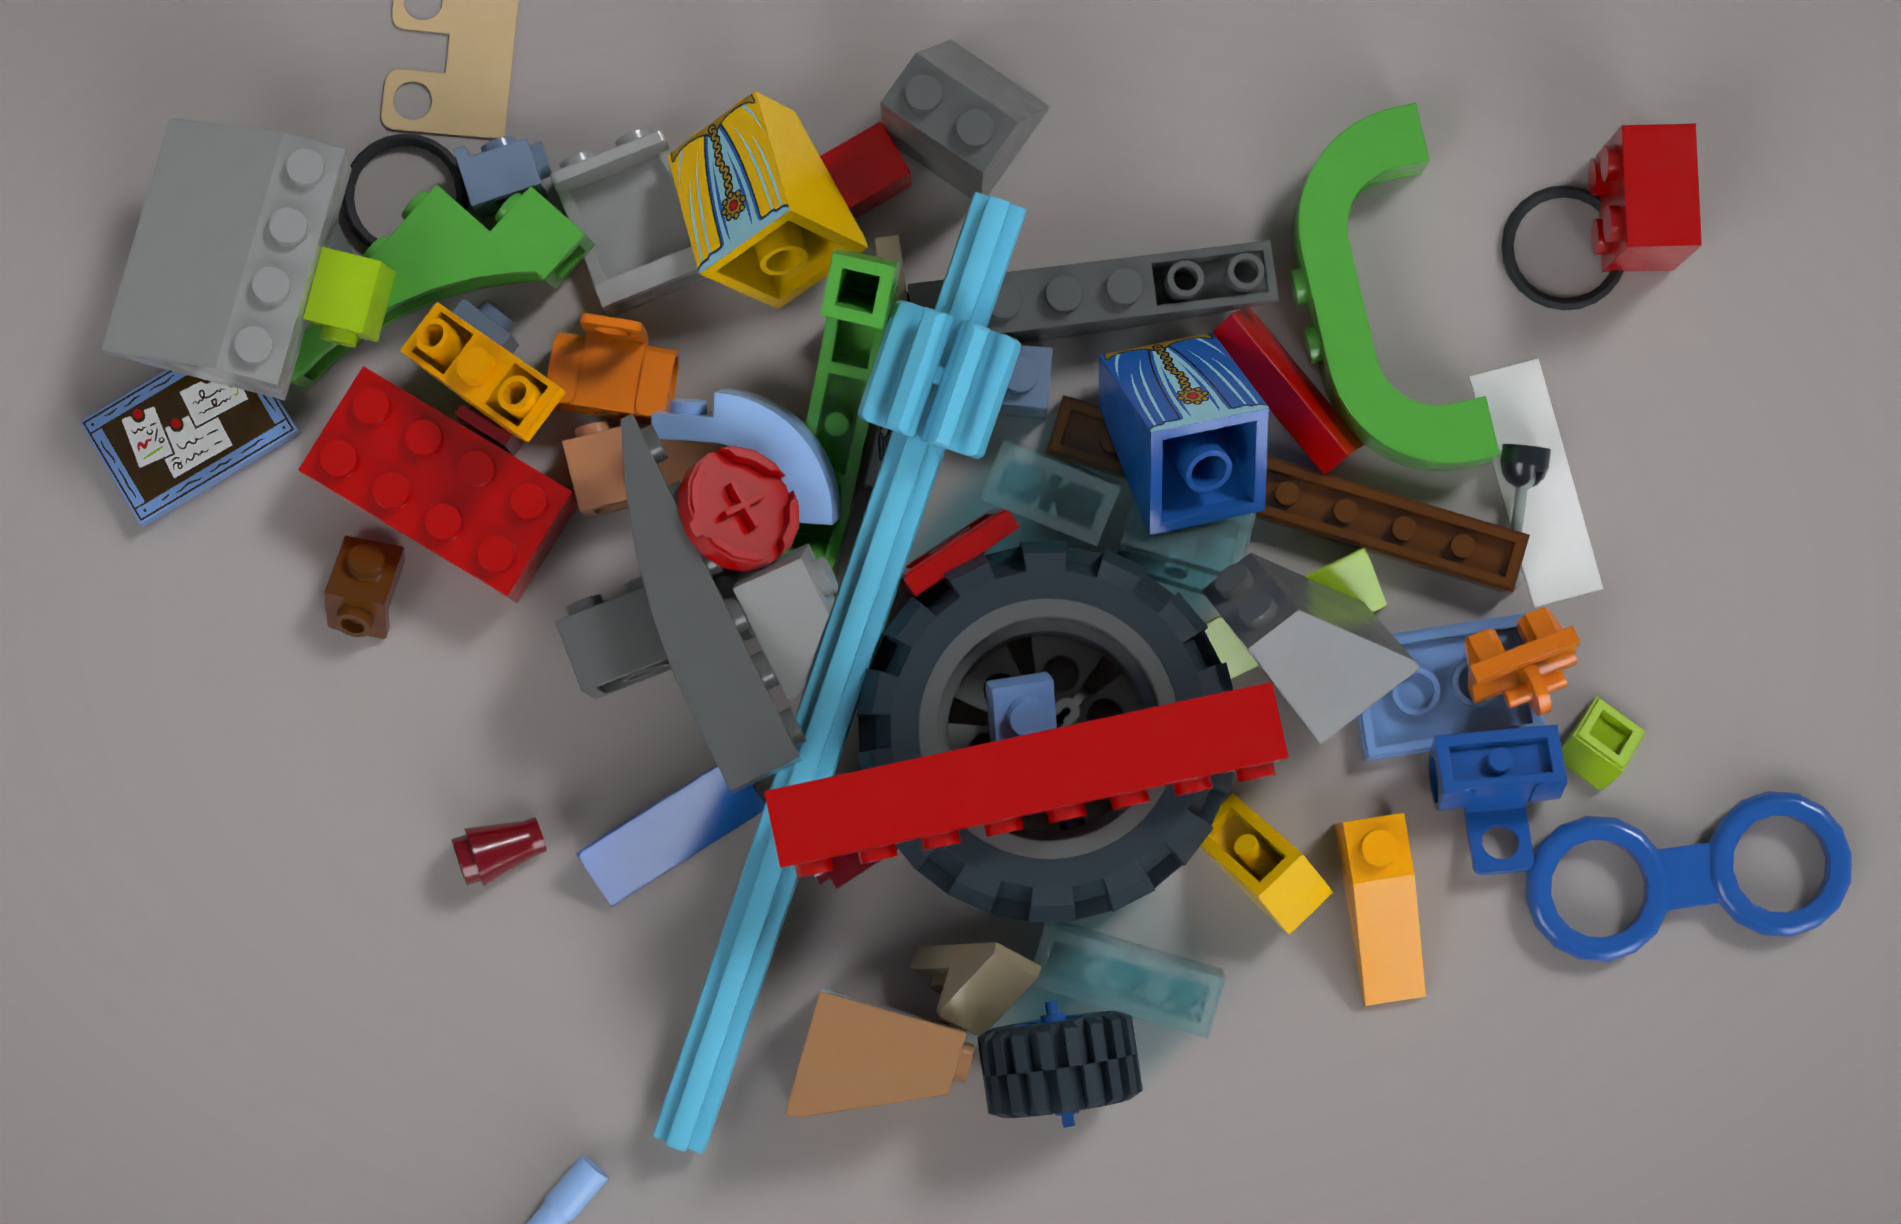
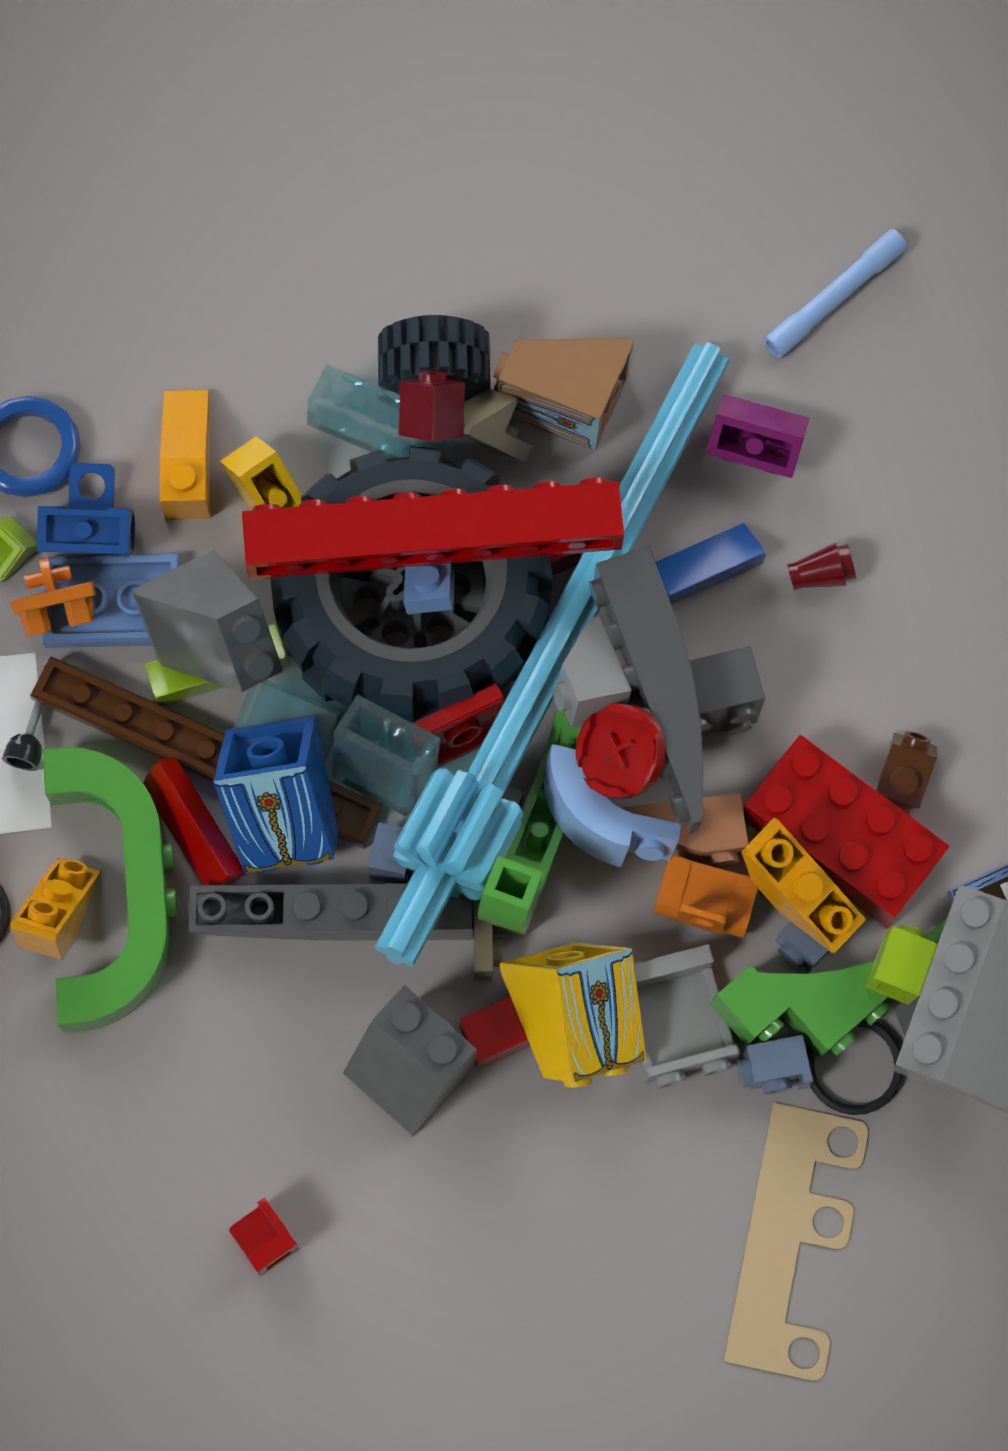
camera: 175 degrees left, 10 degrees down
(601, 1022) = (757, 436): none -> magenta brick
(1052, 969) = (431, 407): none -> dark red brick
(1445, 255) = (55, 909): none -> light orange slope

